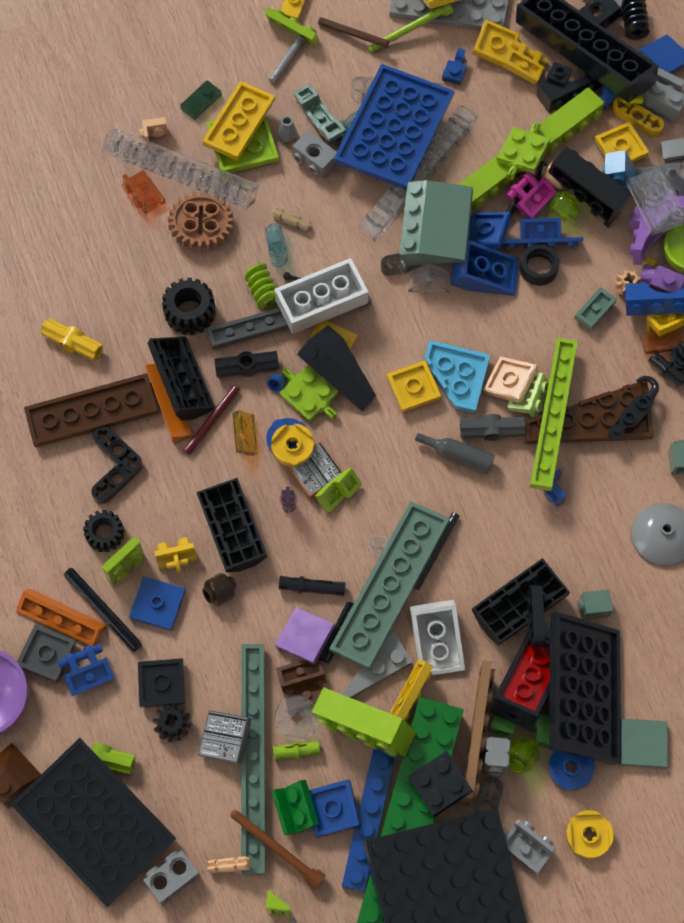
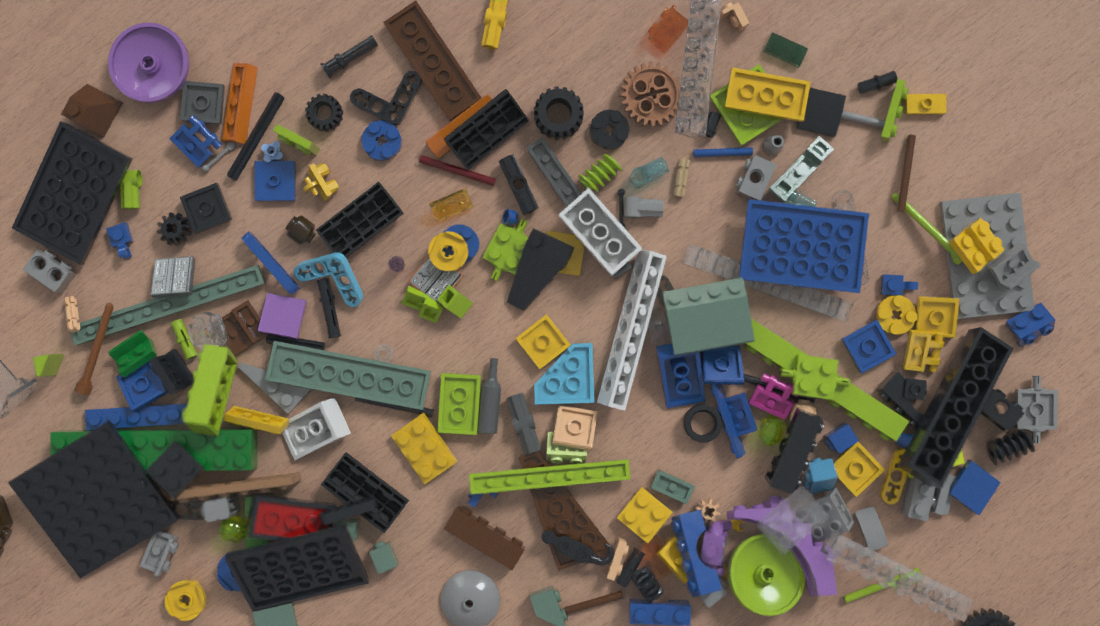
camera: 70 degrees right, 20 degrees up
(57, 498) = (370, 43): none -> black pin
(104, 640) = (230, 146): none -> light grey hinge
(130, 600) = (277, 155): none -> light blue plate
(150, 472) = (371, 145): none -> blue plate
(159, 788) = (120, 237): none -> blue plate
(221, 258) = (614, 119): none -> black plate
(243, 631) = (270, 263): none -> blue beam
(247, 175) = (713, 120): none -> black pin
(260, 33) = (877, 82): none -> black axle
(271, 565) = (332, 269): none -> medium azure beam
(274, 81) = (823, 112): none -> black slope
(279, 177) = (722, 152): none -> blue bar
(308, 261) = (637, 207): none -> light grey piece
(329, 767) = (172, 372): none -> black bracket
(345, 454) = (455, 301): none -> lime brick
(429, 299) = (631, 329): none -> white brick
(453, 484) = (459, 403): none -> lime plate
(483, 67) = (907, 314): none -> yellow plate
(490, 532) = (424, 448): none -> yellow plate
(506, 105) = (868, 346): none -> blue plate
(589, 148) = (840, 438): none -> blue brick
(601, 497) = (485, 537): none -> reddish brown brick
(617, 340) = (644, 515): none -> yellow plate
(665, 381) = (615, 568): none -> light nougat plate

